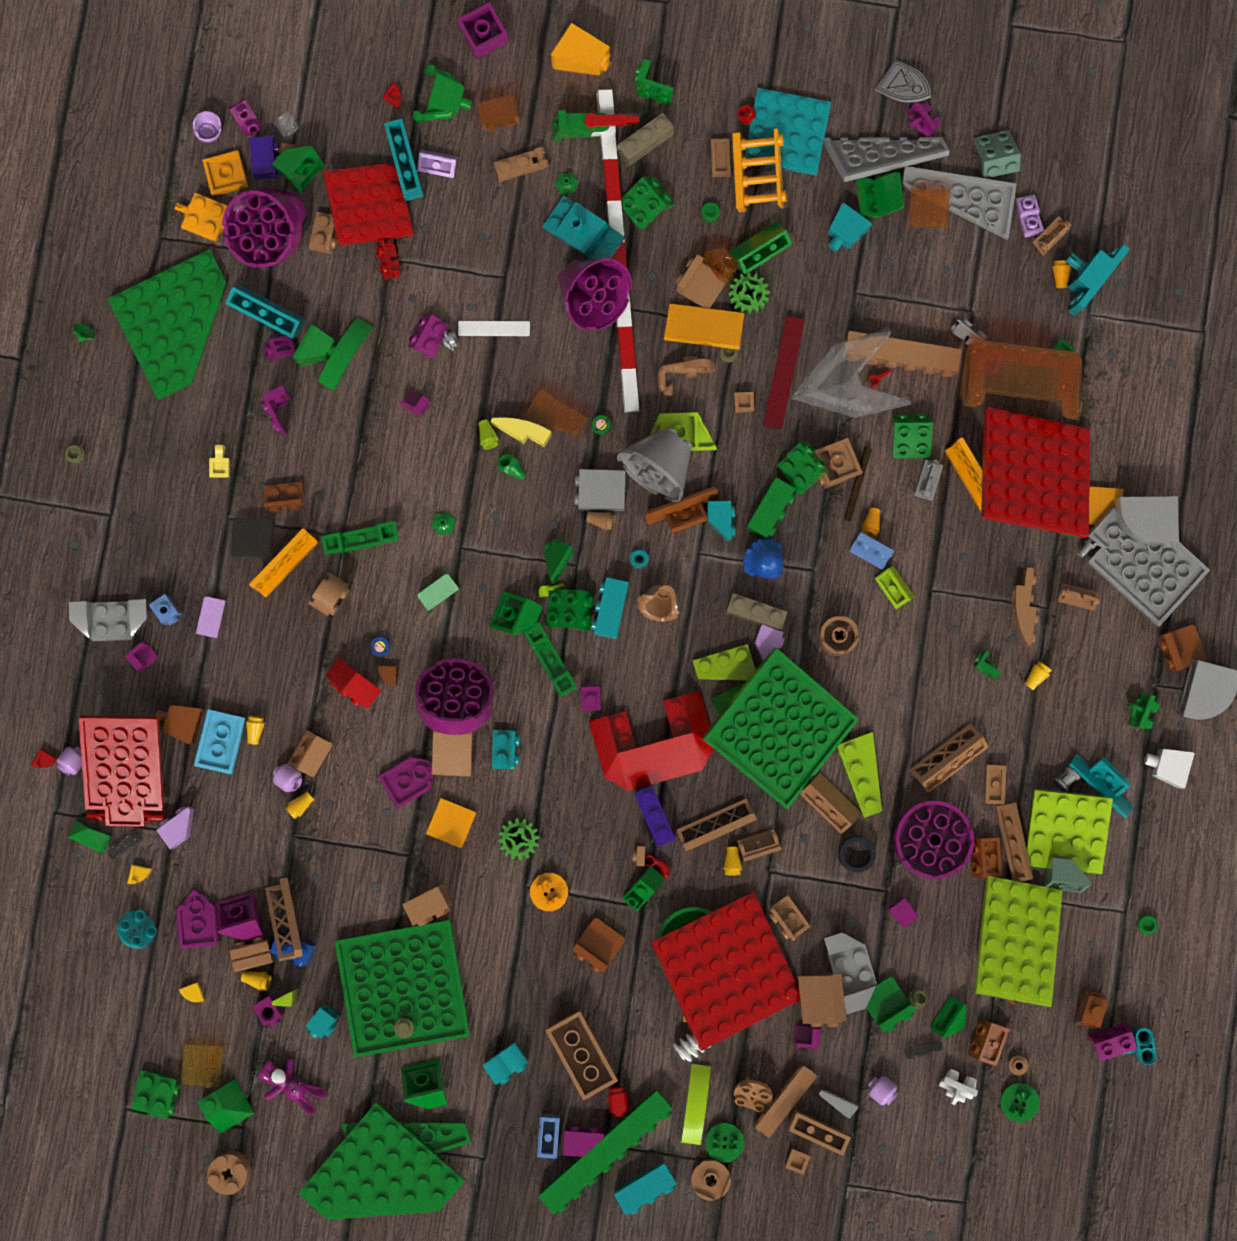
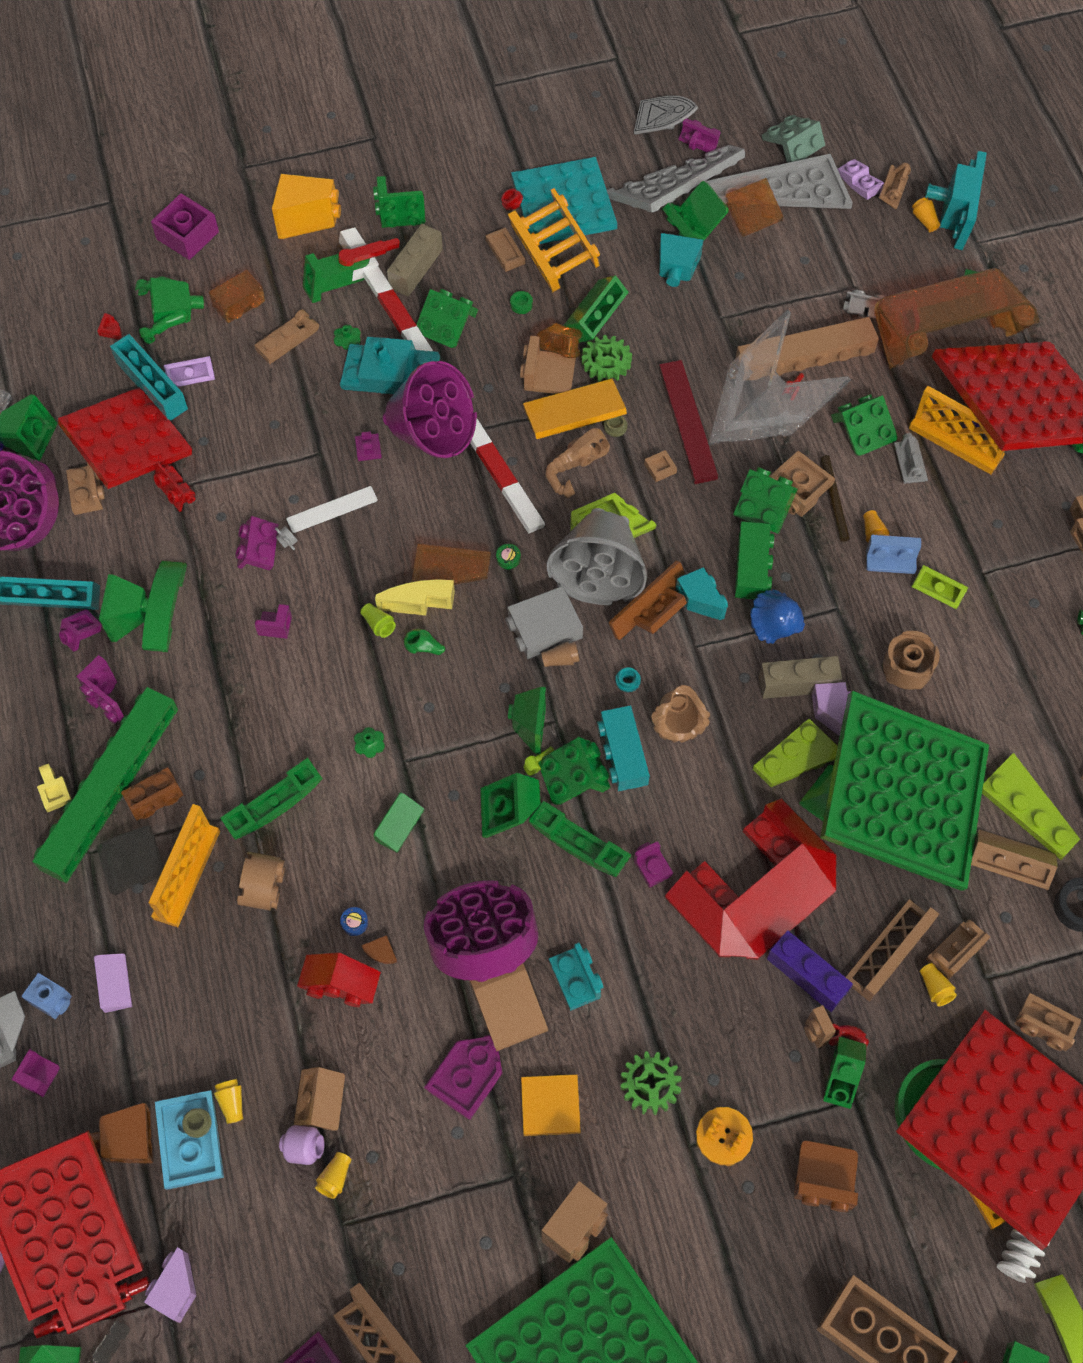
camera: 25 degrees left, 20 degrees down
(228, 735) = (197, 1123): none -> olive plate
(255, 476) = (103, 787): none -> green brick
(541, 289) = (368, 446): none -> magenta tile

